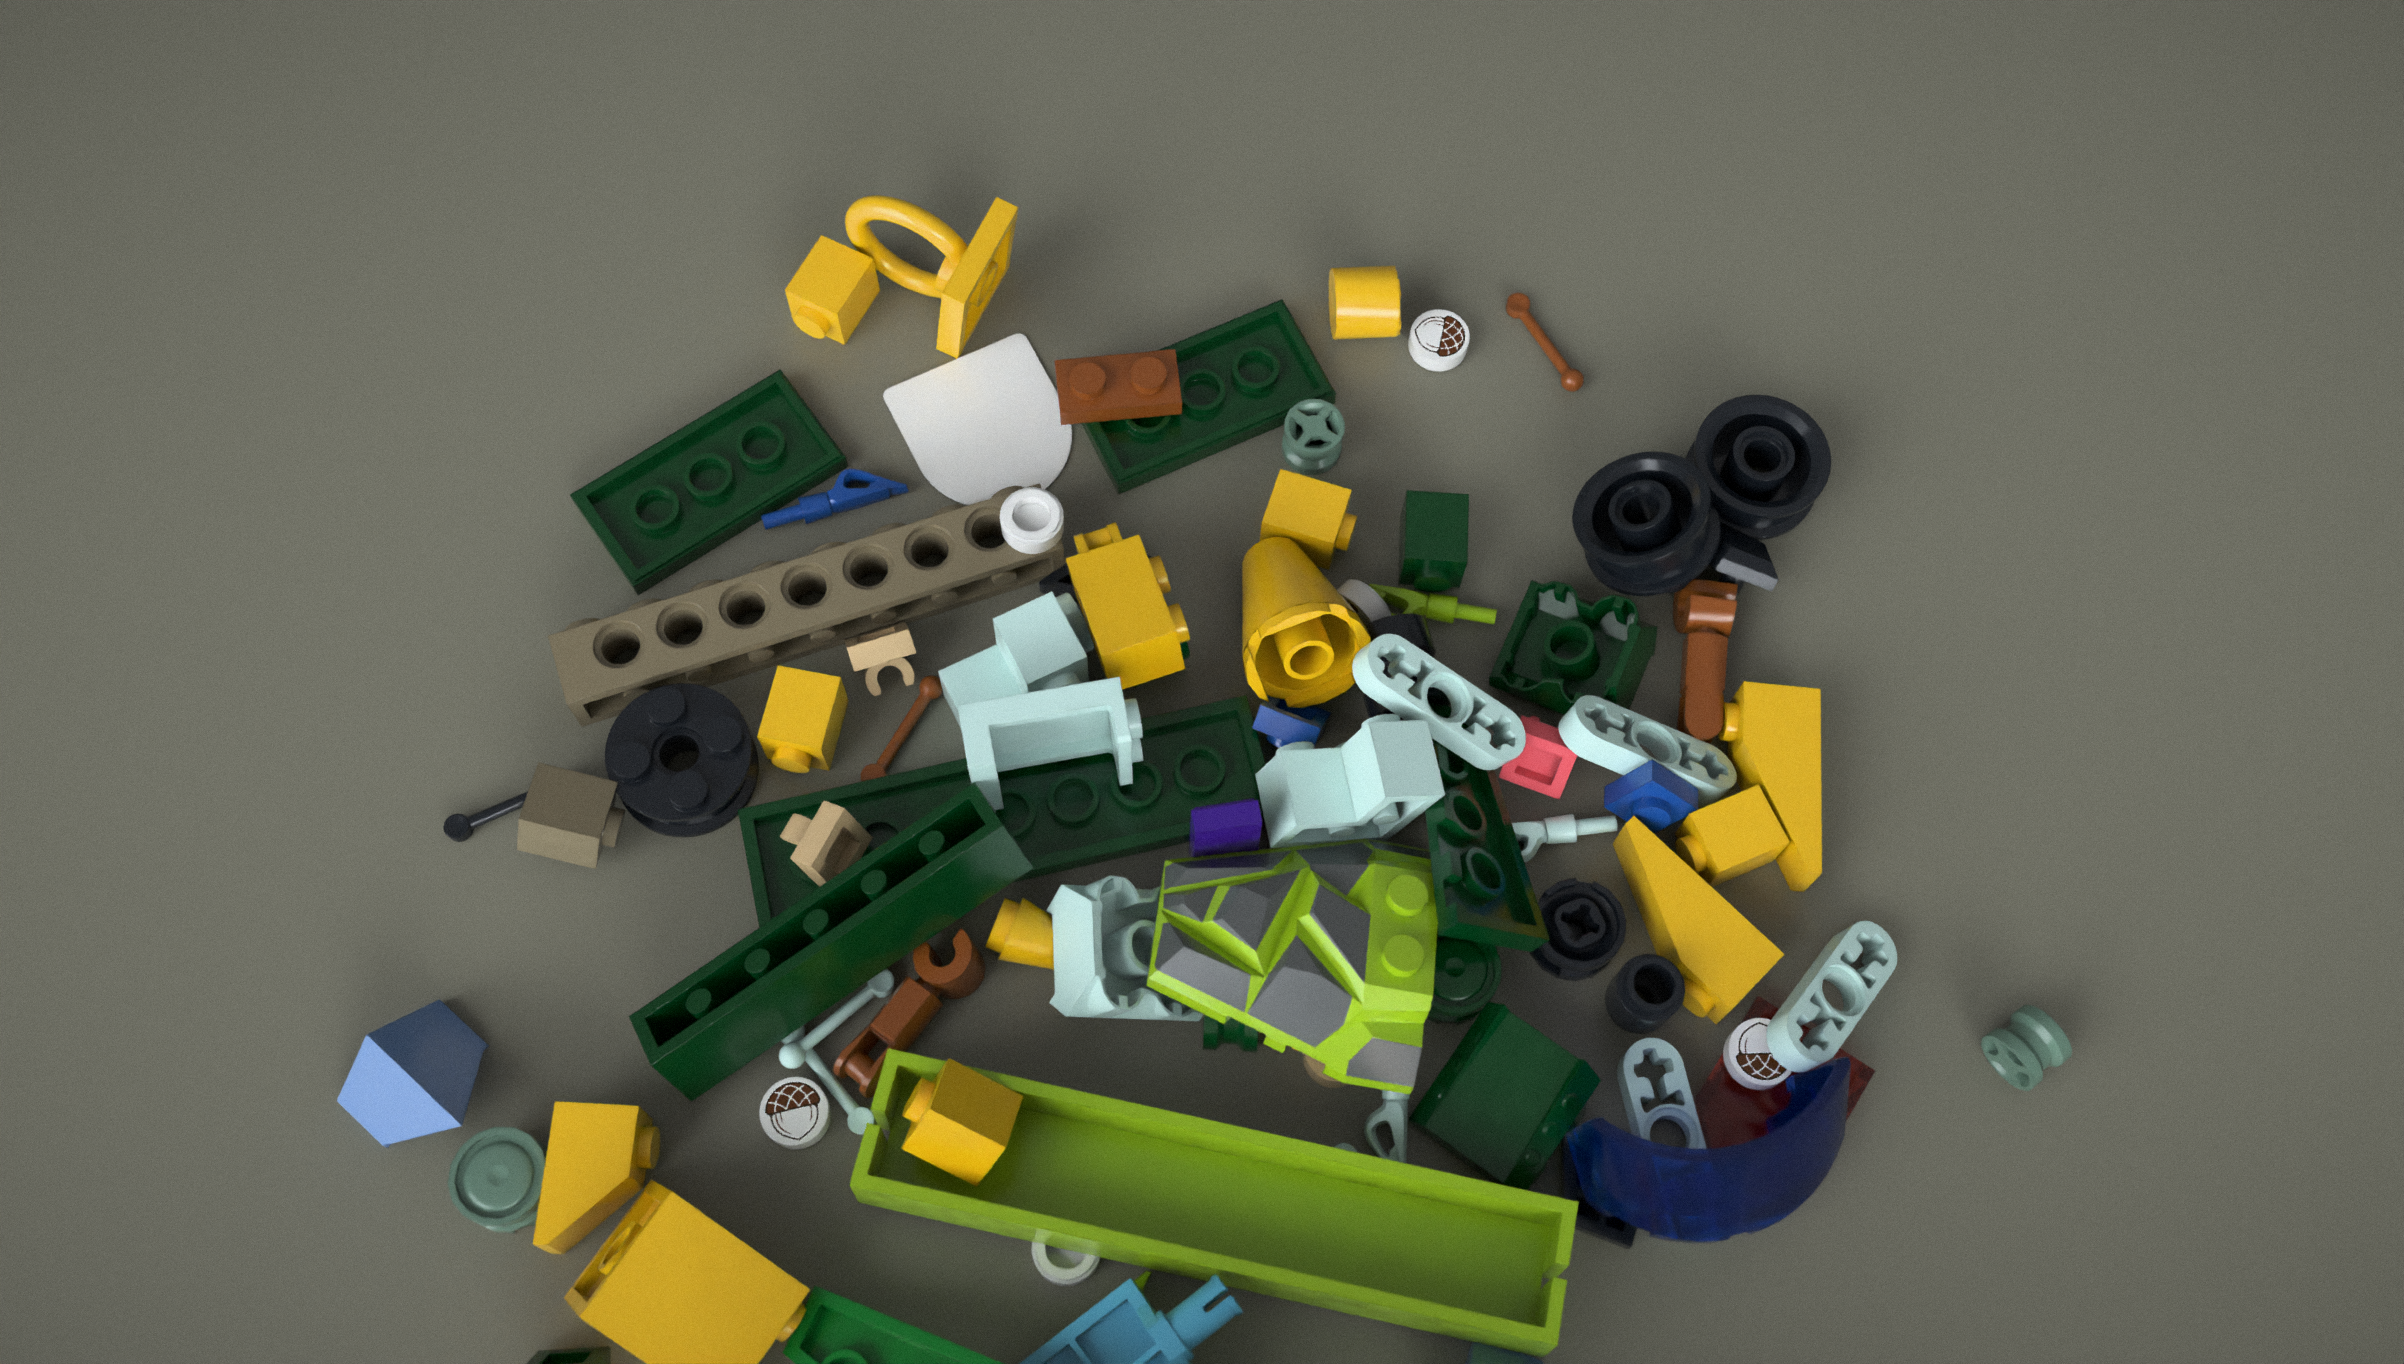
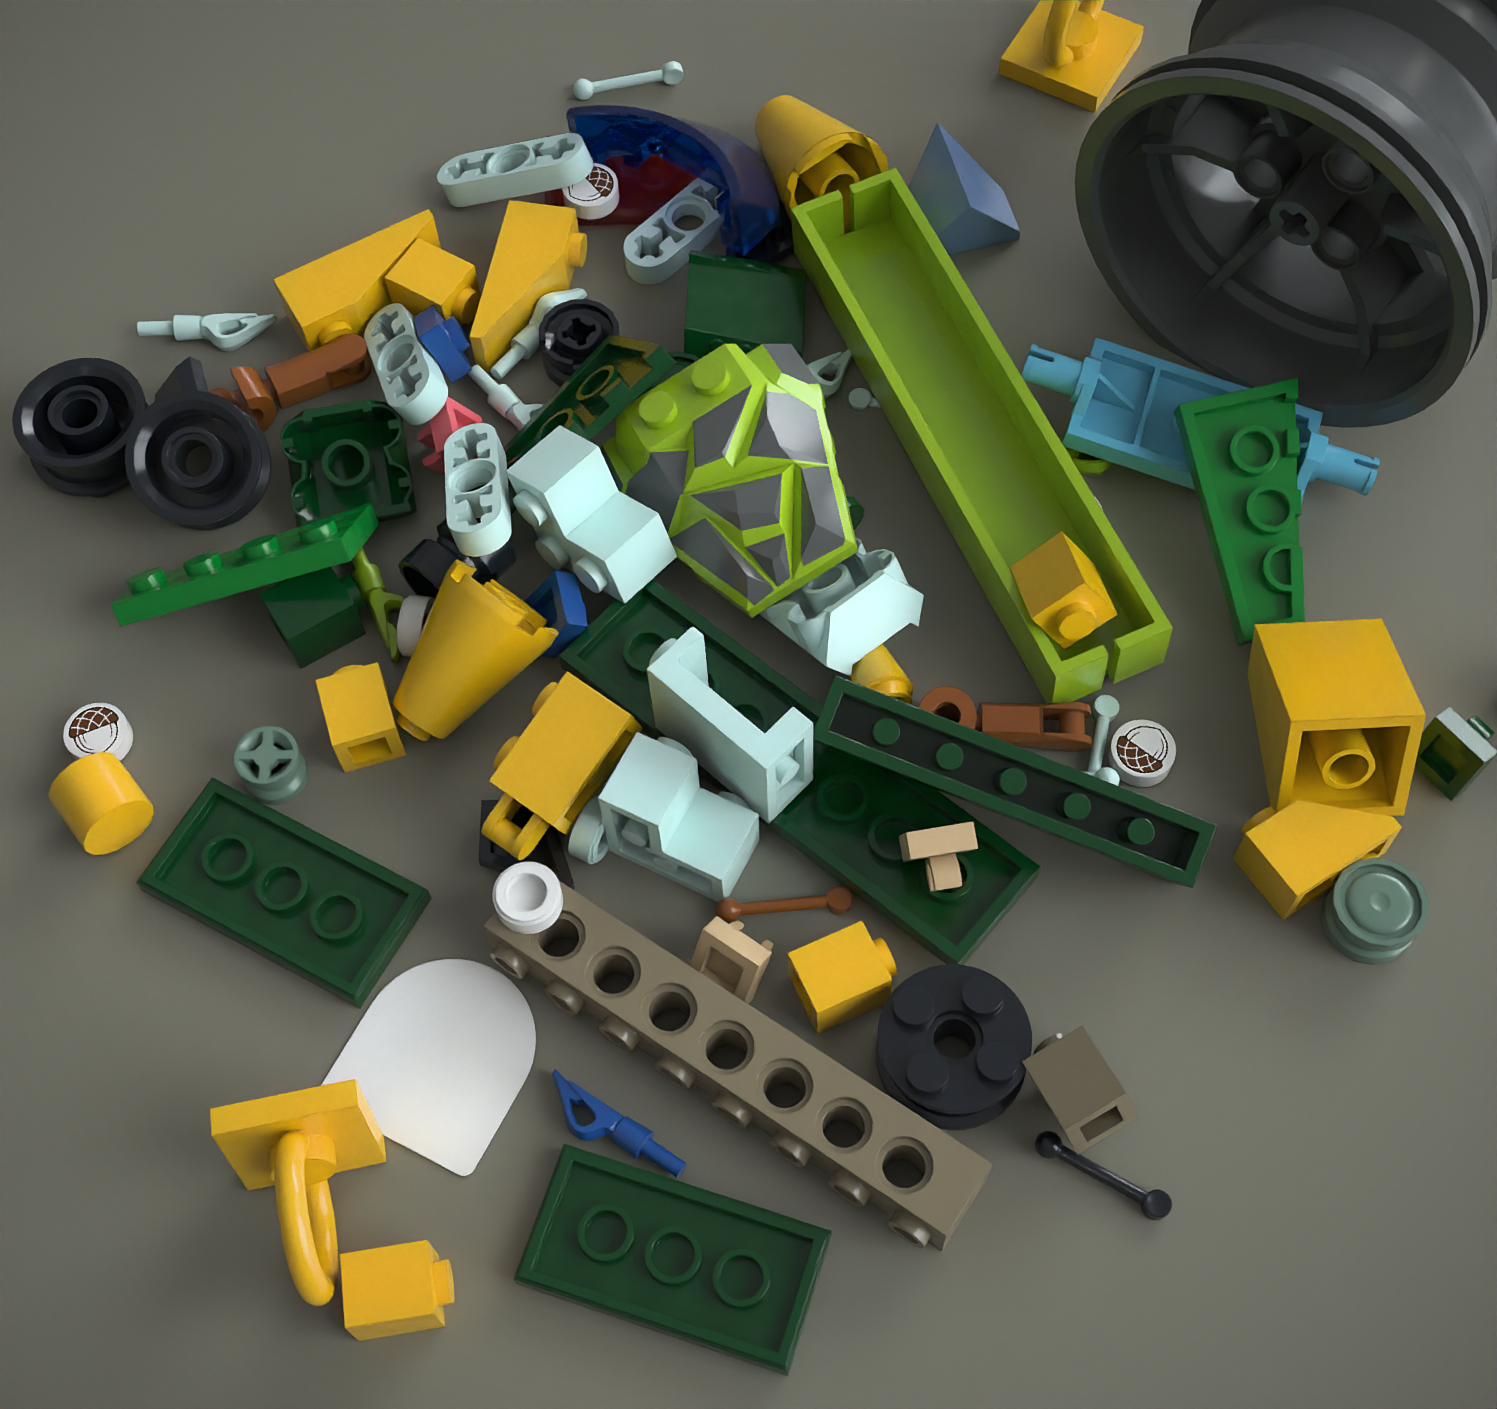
camera: 120 degrees left, 5 degrees down
(414, 1075) = (1366, 1038): medium blue slope -> none
(1118, 387) = (330, 946): dark orange plate -> none
(1225, 828) = (697, 575): dark purple tile -> none
(1503, 517) = (247, 567): none -> green wing
(1518, 307) = (18, 699): dark orange hinge -> none
(1639, 927) = (527, 340): none -> light aqua hand
(1651, 1301) = (814, 152): none -> yellow cone
(1657, 981) = (601, 266): black brick -> none
(1820, 637) = (224, 330): none -> light aqua hand
(1927, 1159) = (670, 72): none -> light aqua hinge
(2026, 1047) = (465, 64): sand green wheel -> none

